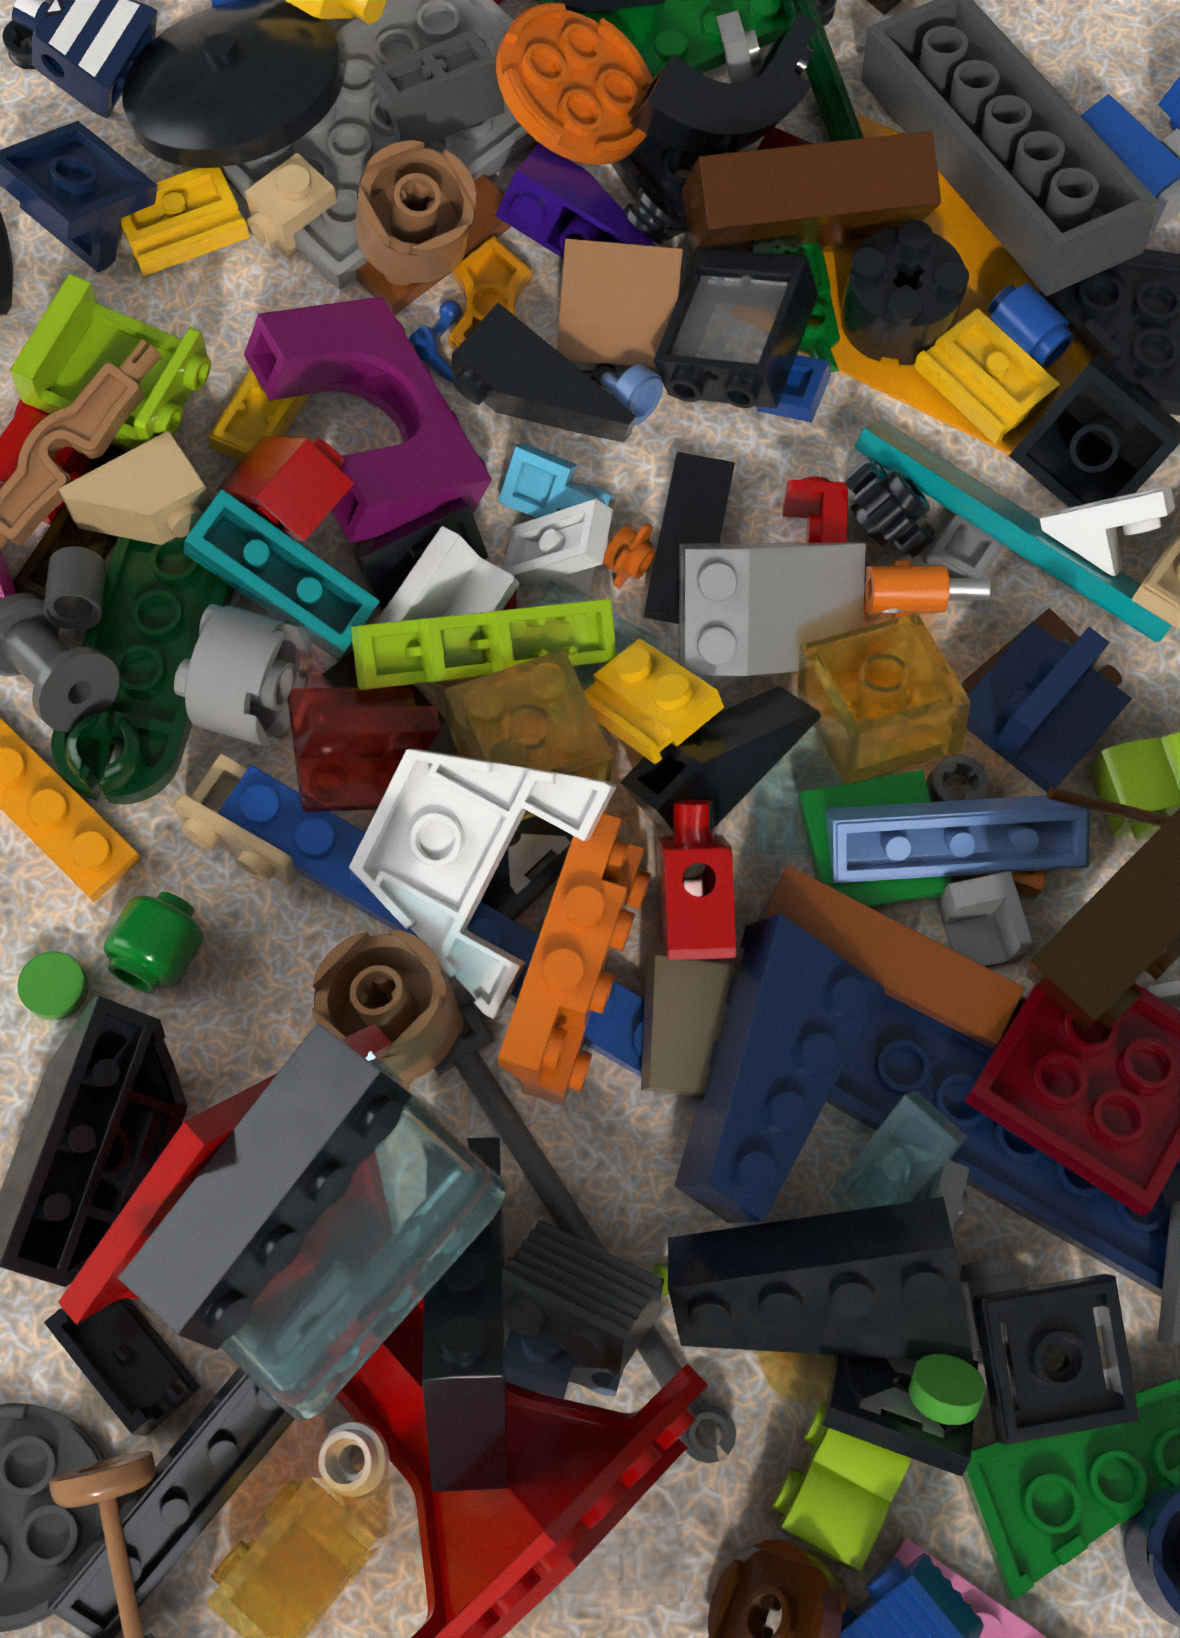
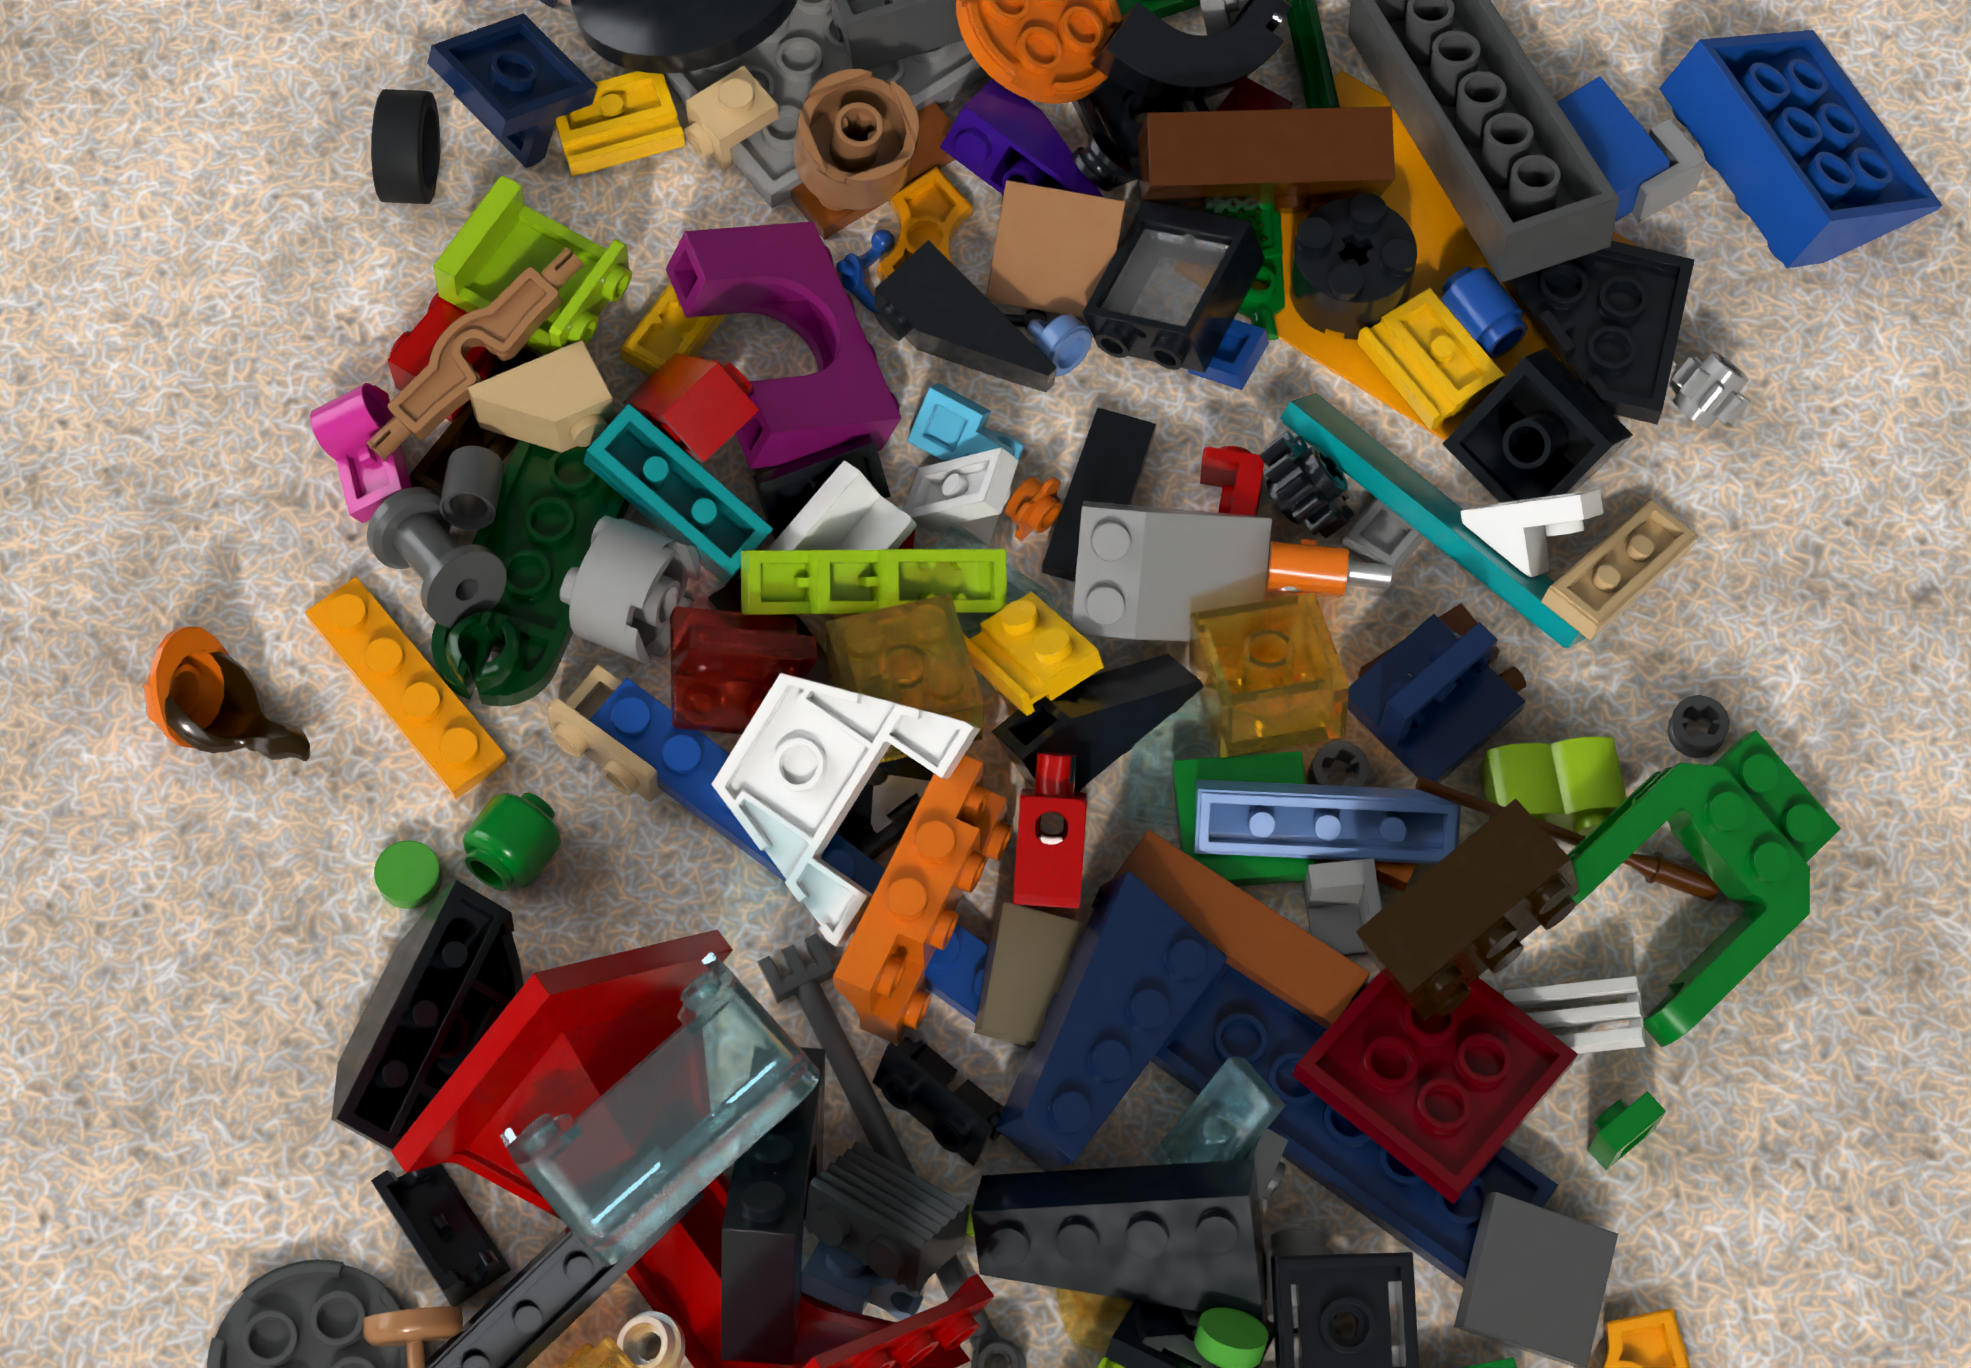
camera: 10 degrees right, 5 degrees down
(265, 1189) = (601, 1044): brick -> none
(396, 987) = (750, 908): medium nougat brick -> none
(585, 1145) = (916, 1081): none -> black hinge

